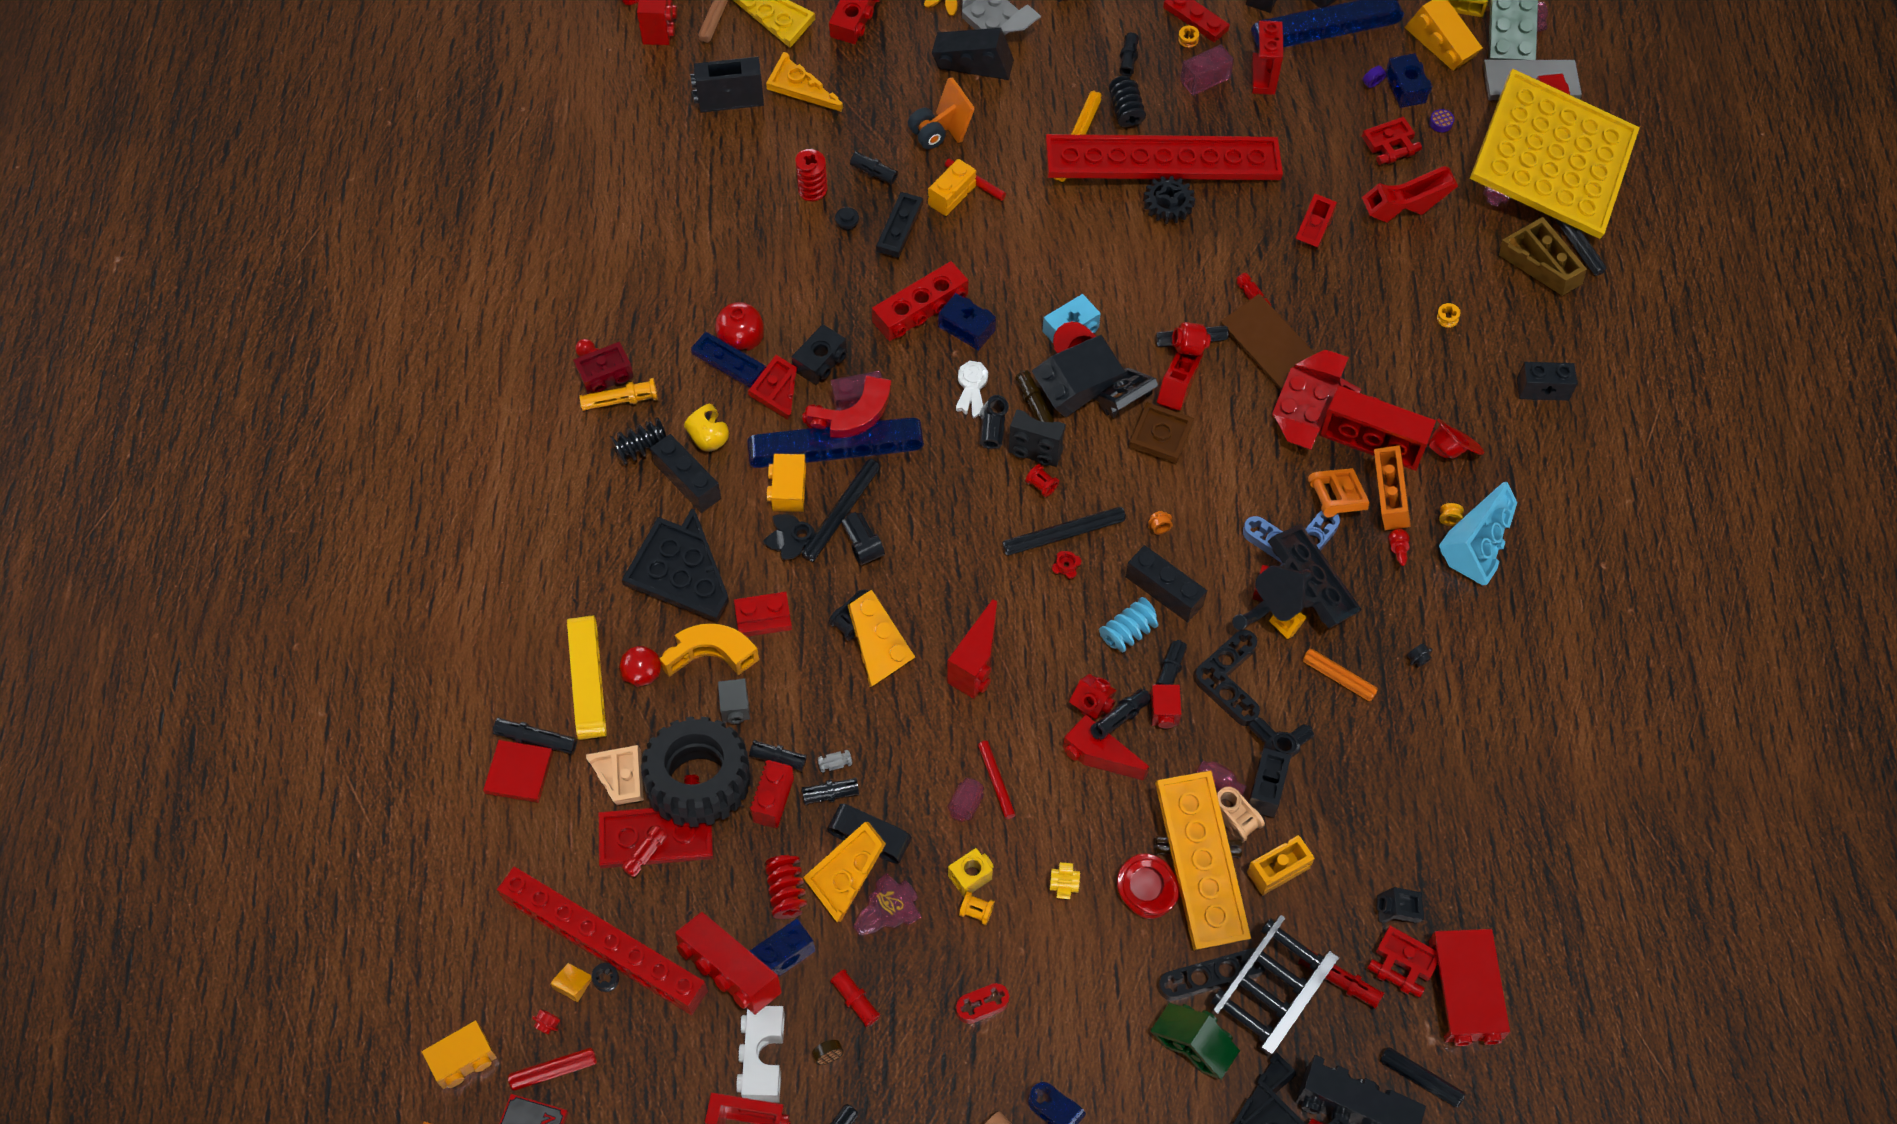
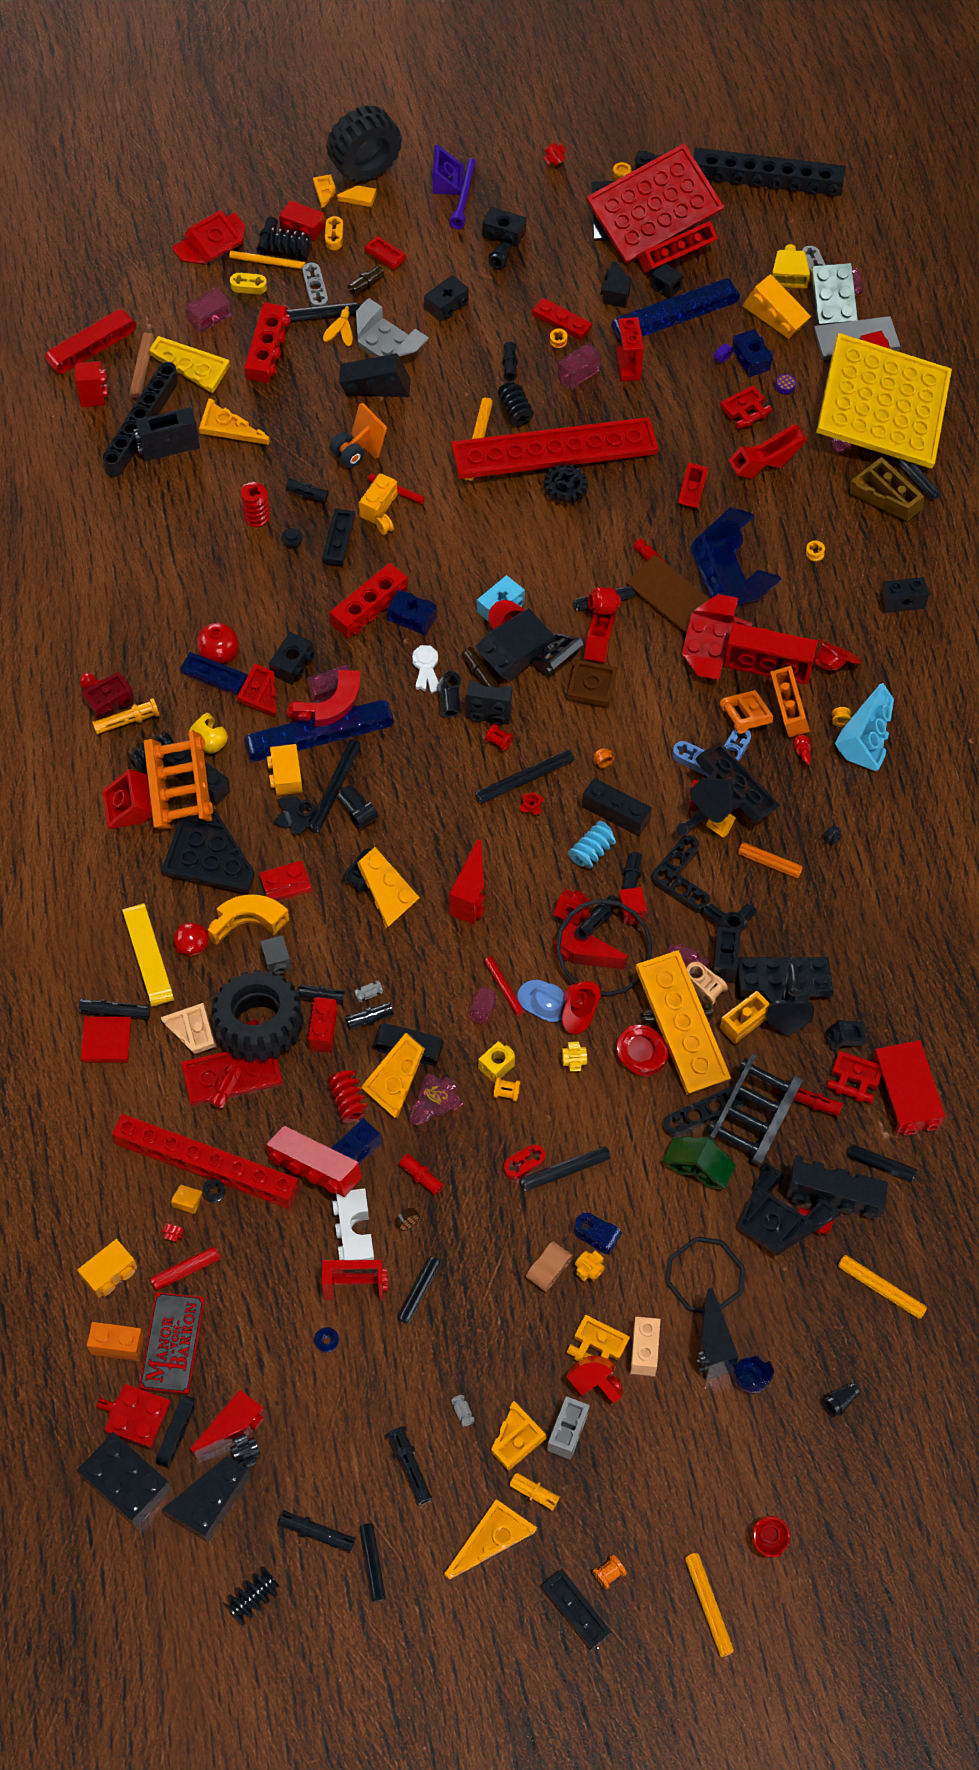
camera: 10 degrees left, 0 degrees up
(602, 491) = (127, 800): none -> red slope
(636, 472) = (158, 773): none -> orange fence
(719, 46) = (148, 404): none -> black beam
(953, 217) = (384, 524): none -> light orange bush
(1030, 1019) = (565, 1168): none -> black axle
(1041, 804) = (542, 1000): none -> medium blue piece
(1069, 738) = (593, 903): none -> black piece
(1081, 819) = (580, 1005): none -> red piece
(1332, 315) = (718, 564): none -> clear blue windscreen
(1338, 827) = (786, 986): none -> black plate

